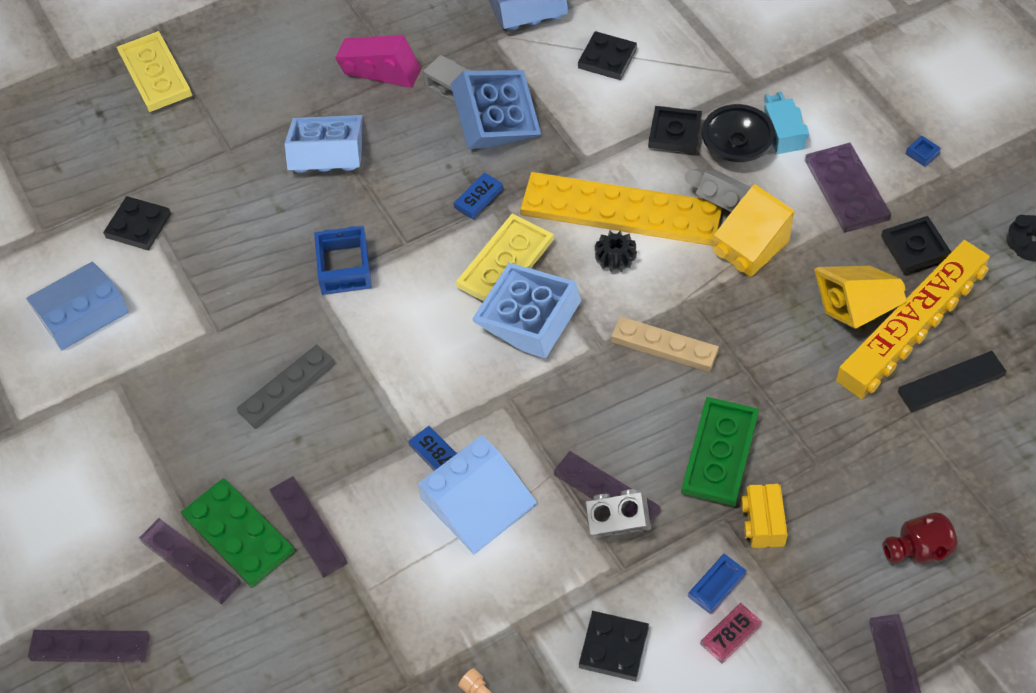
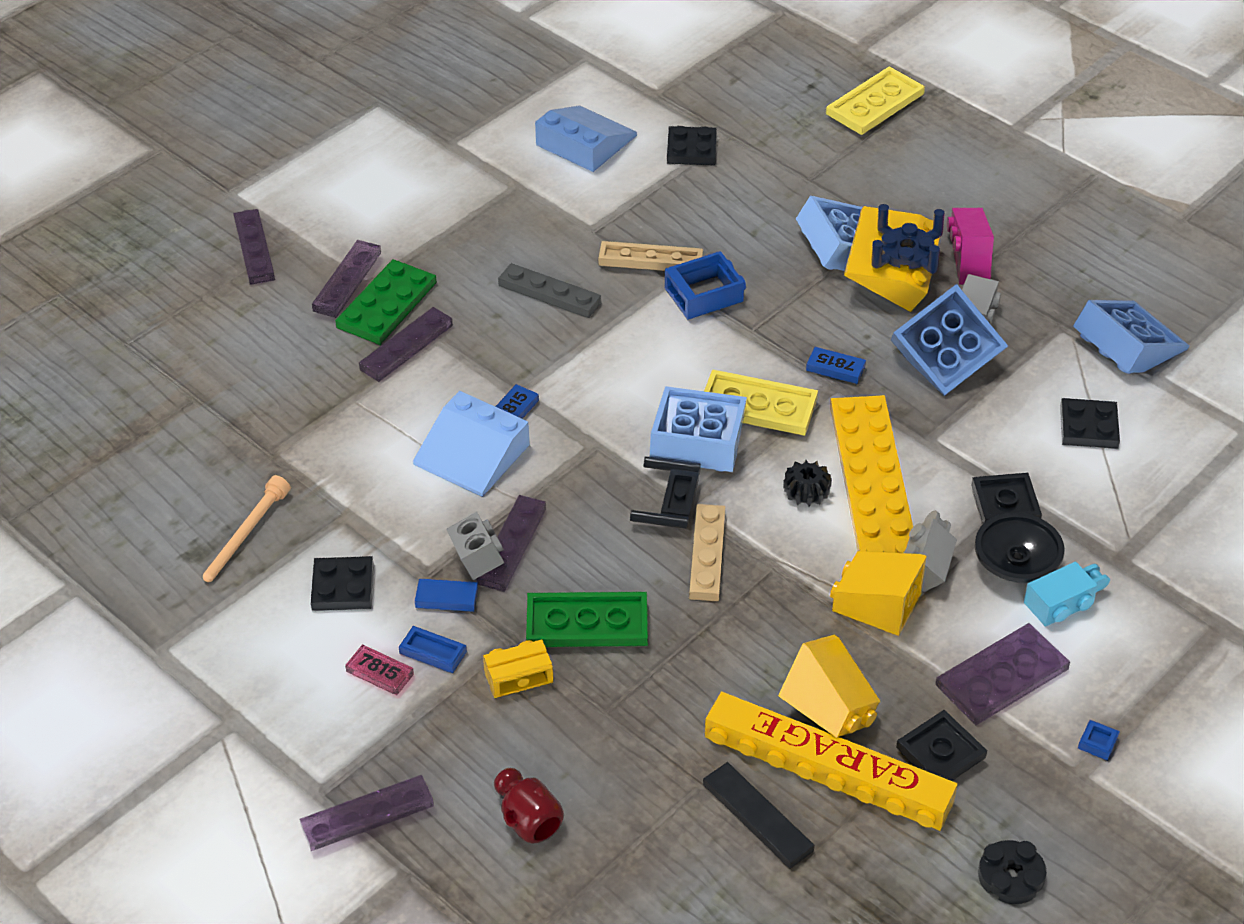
camera: 70 degrees right, 10 degrees down
(282, 293) = (644, 255): none -> tan plate
(377, 110) = (899, 285): none -> yellow slope
(384, 84) = (896, 243): none -> dark blue plate
(597, 347) = (678, 496): none -> black plate
(655, 558) = (446, 595): none -> blue tile

